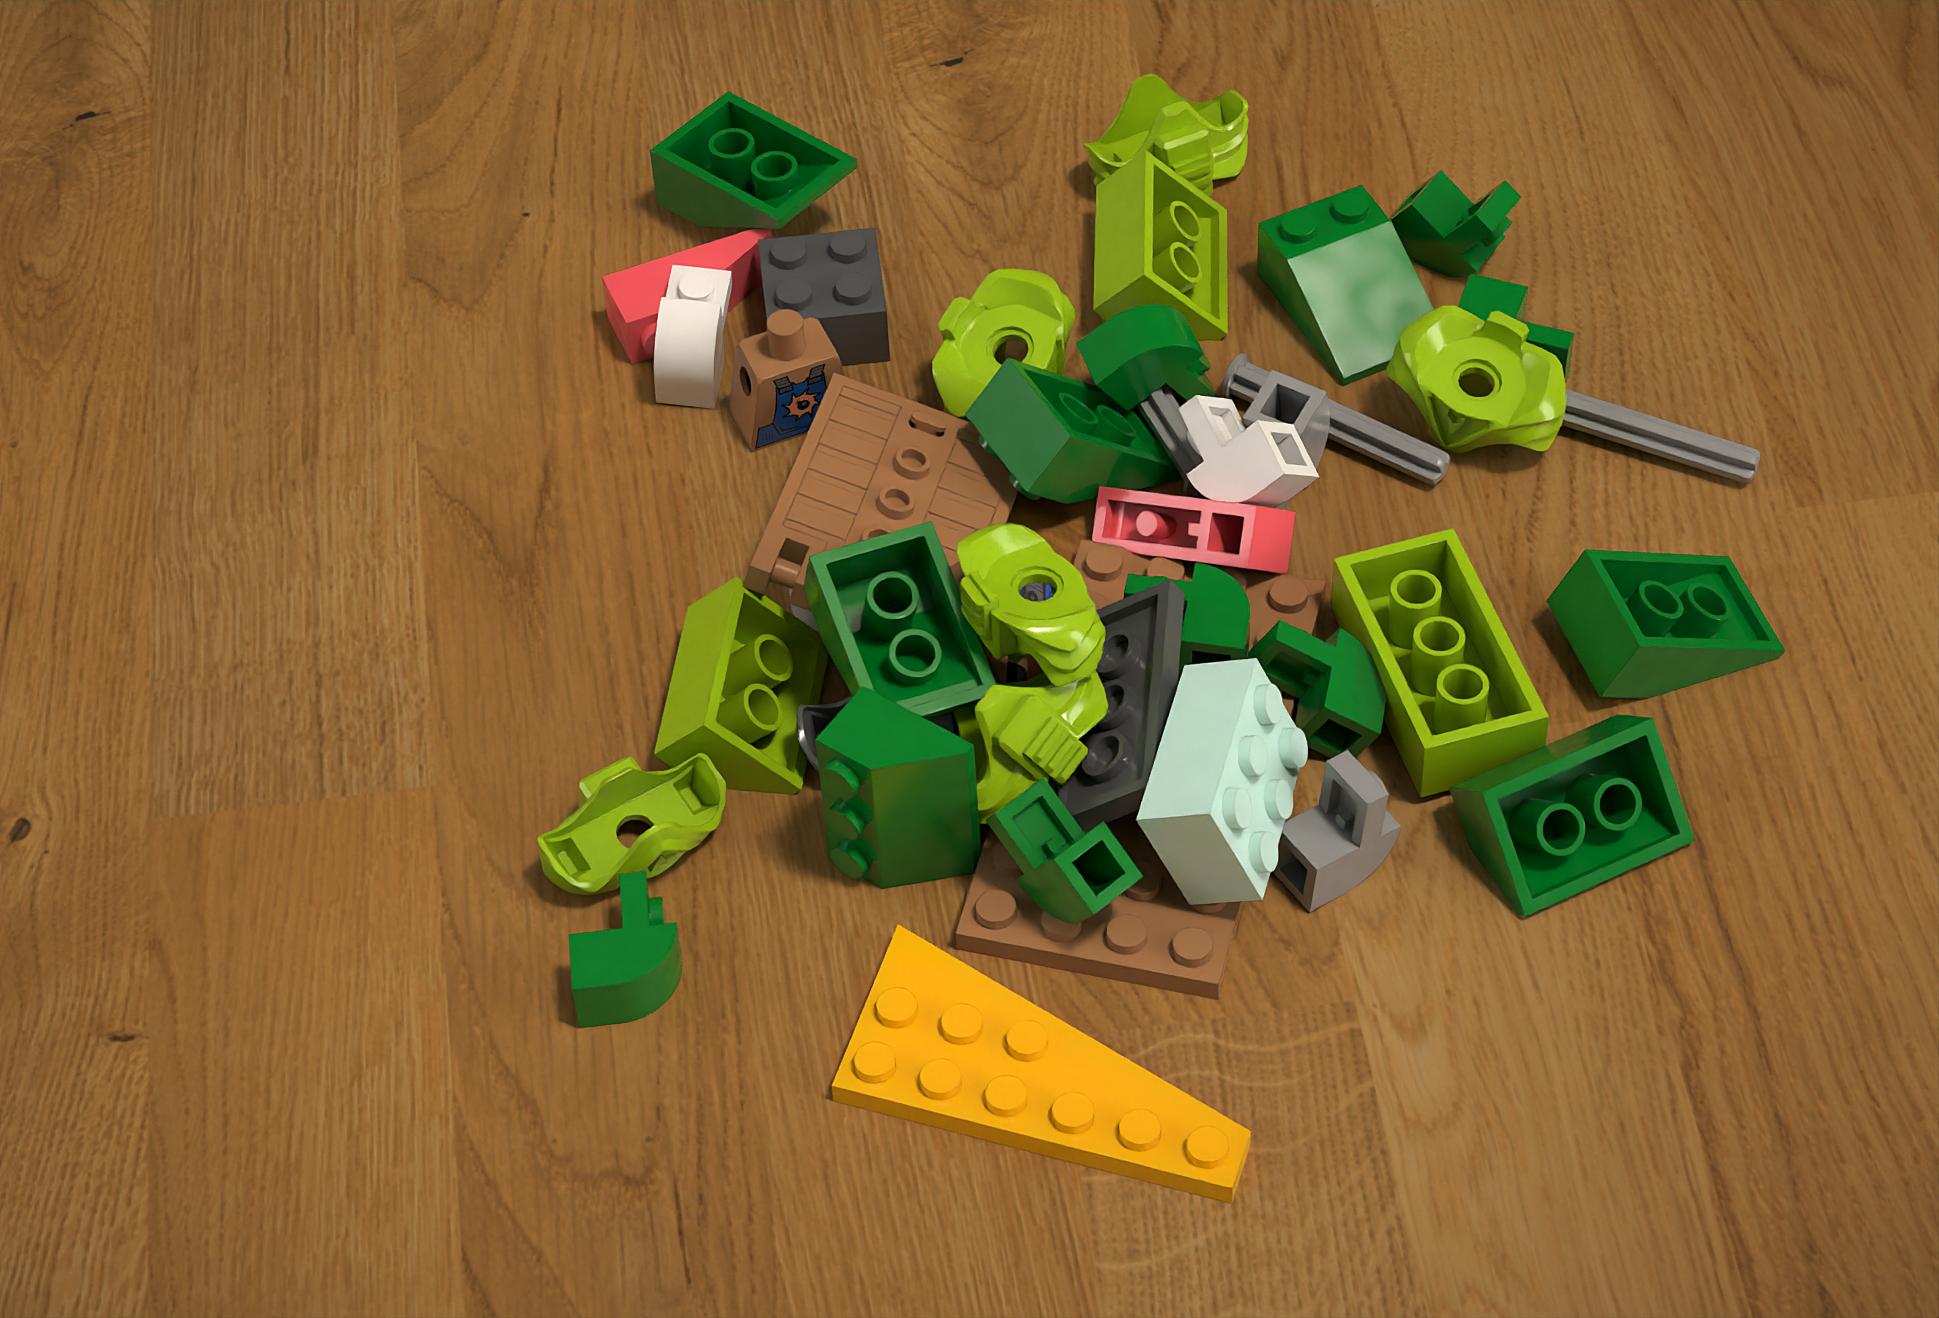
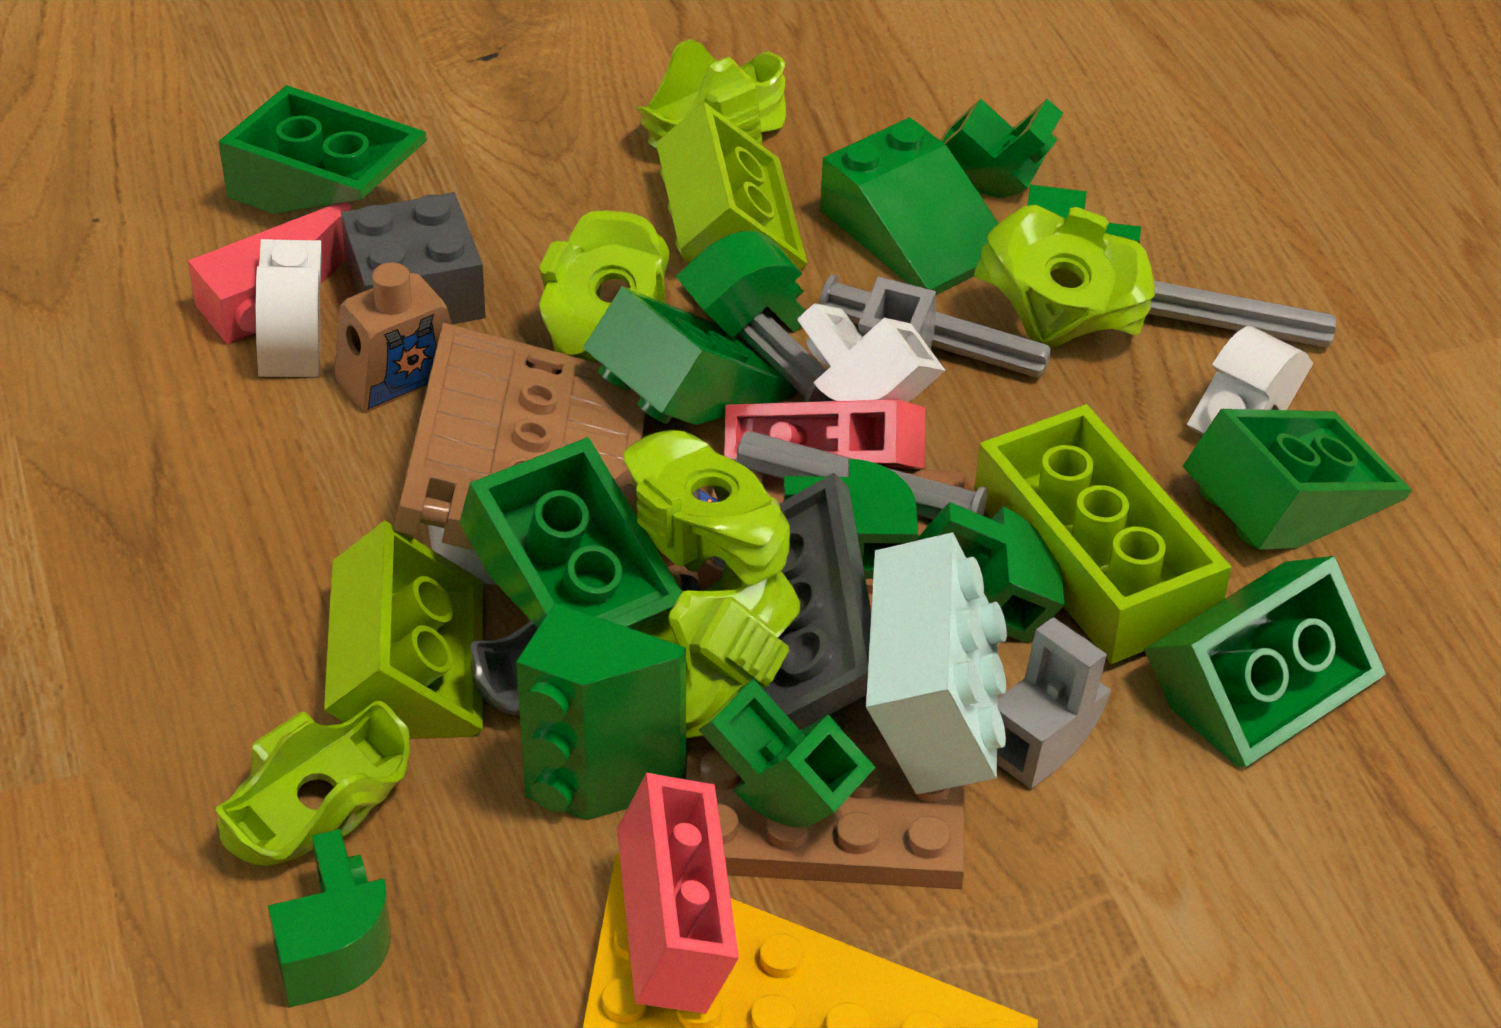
camera: 15 degrees left, 5 degrees down
(932, 971) = (676, 894): none -> coral brick
(1168, 560) = (786, 458): none -> light grey axle
(1646, 509) = (1252, 374): none -> white brick

